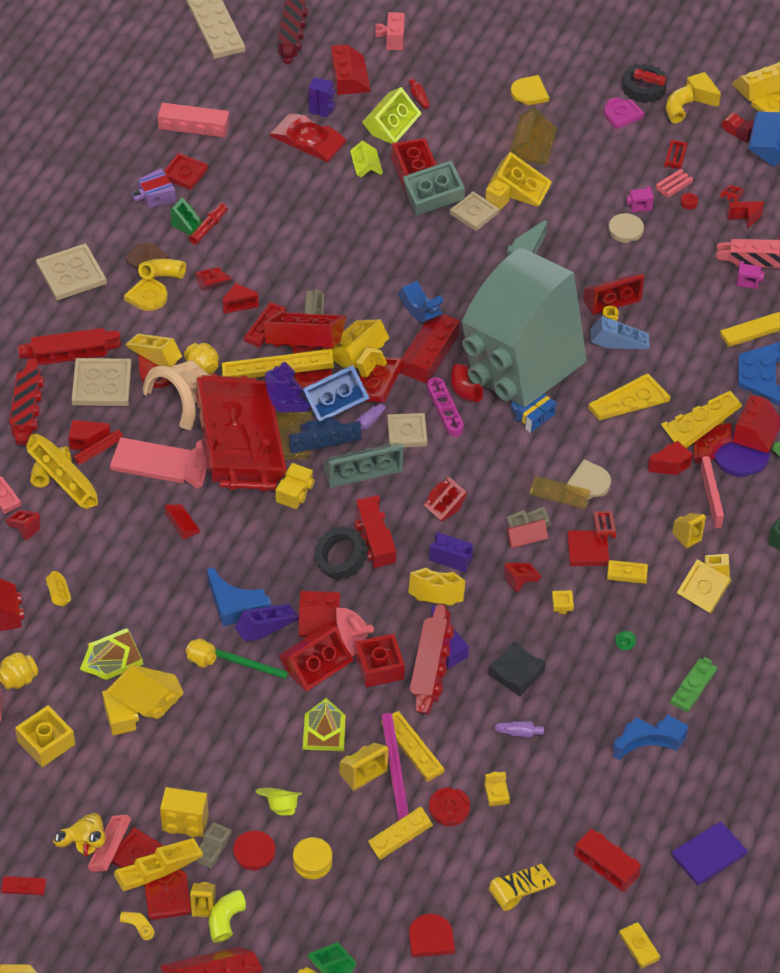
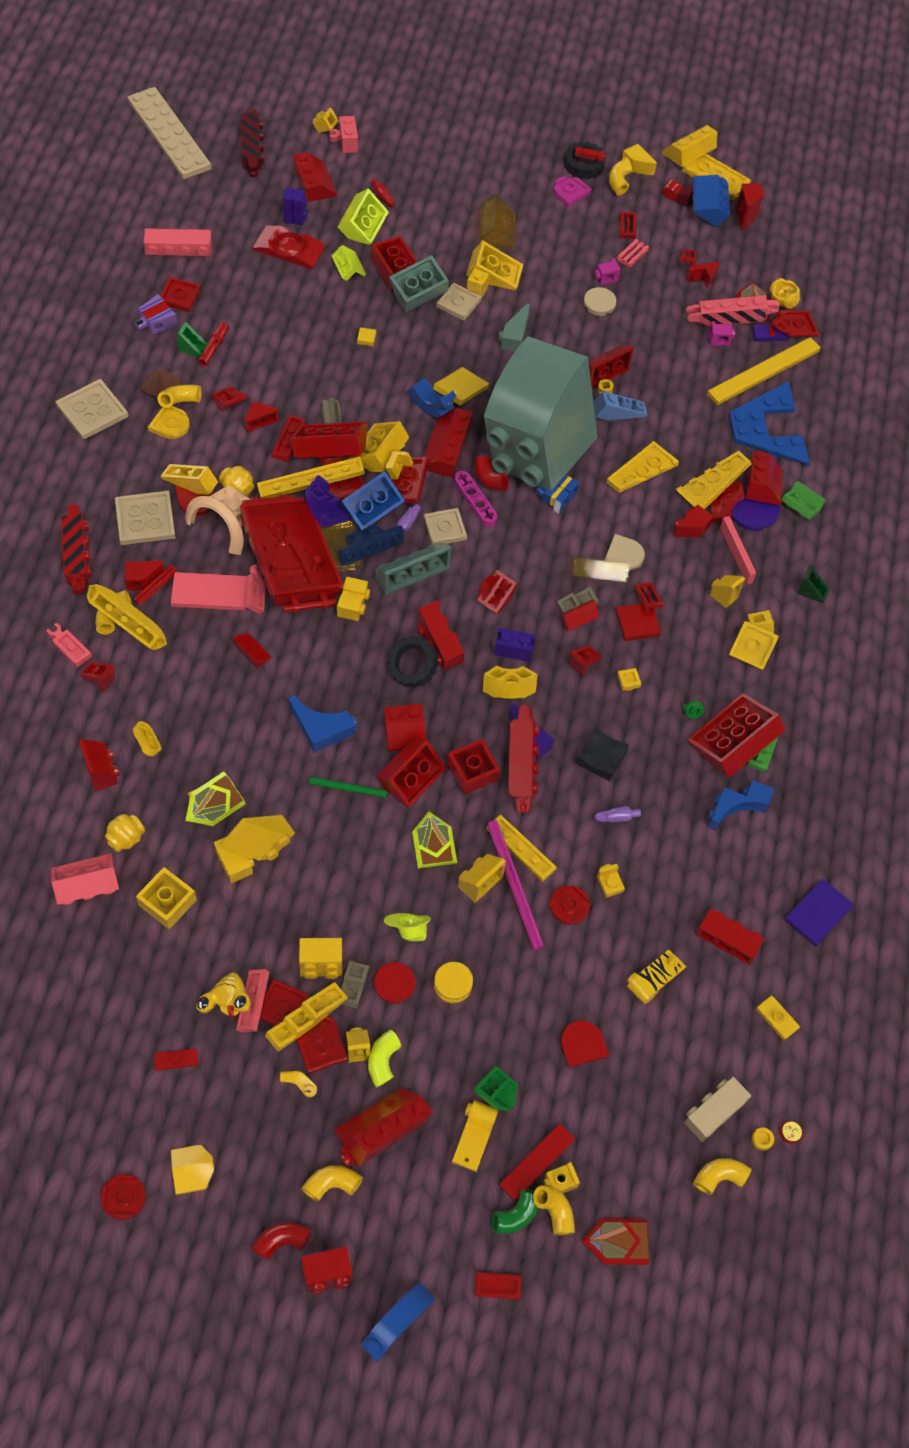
camera: 15 degrees left, 10 degrees up
(70, 345) = (106, 485): red hinge -> none
(201, 653) = (300, 785): yellow head -> none
(261, 622) = (354, 742): dark purple slope -> none
(351, 628) = (441, 738): coral shield -> none
(368, 235) = (366, 336): none -> yellow tile
(373, 15) = (325, 121): none -> yellow brick
(400, 833) = (532, 942): yellow plate -> none
(455, 292) = (463, 383): none -> yellow tile
(529, 91) = (483, 179): yellow tile -> none
(627, 571) = (679, 640): yellow plate -> none
(662, 669) = (737, 734): none -> red slope
(689, 201) = (650, 268): red tile -> none

